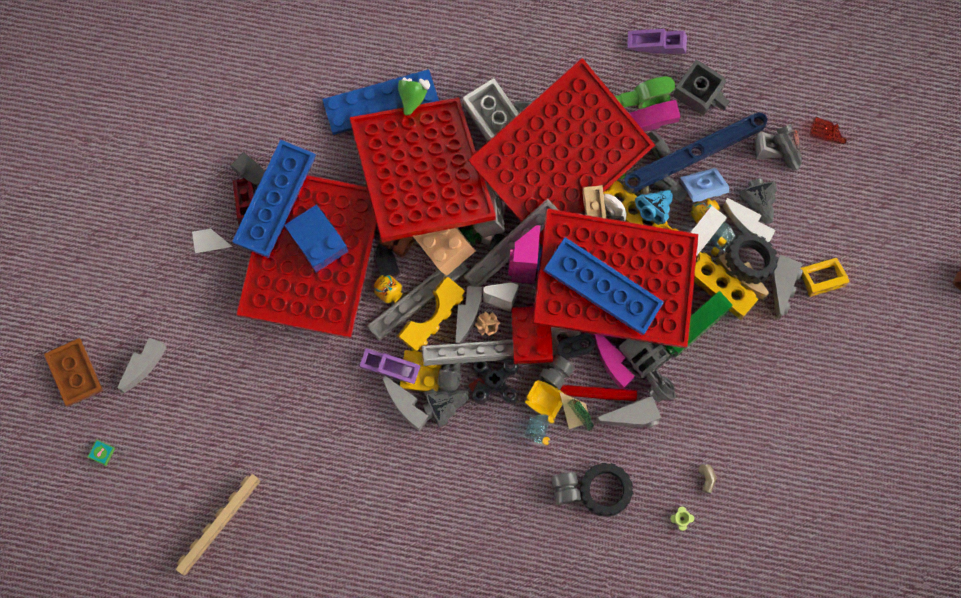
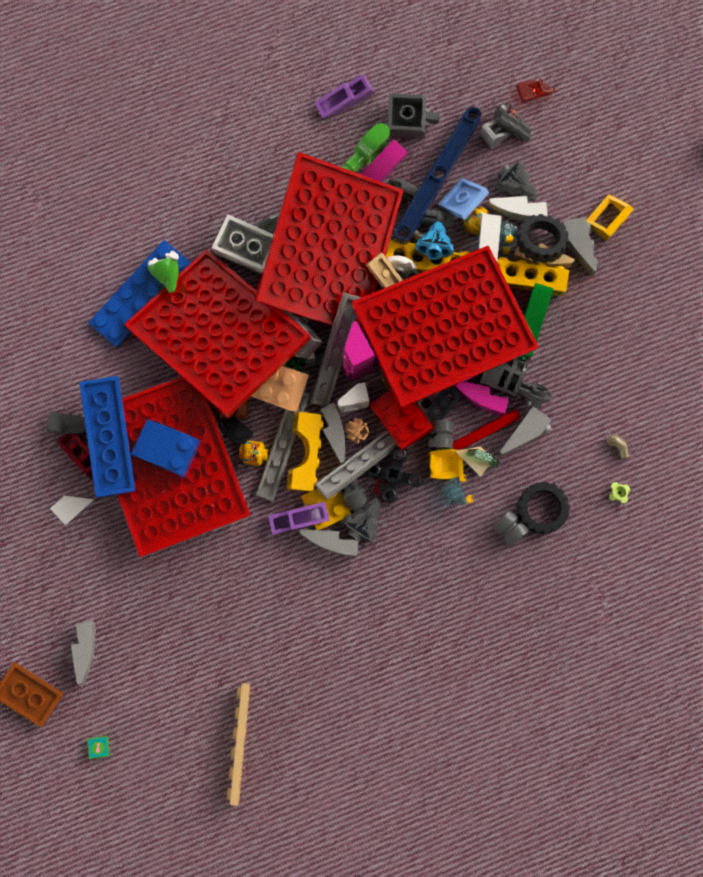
camera: 35 degrees left, 5 degrees up
(603, 286) = (440, 339): blue plate -> none

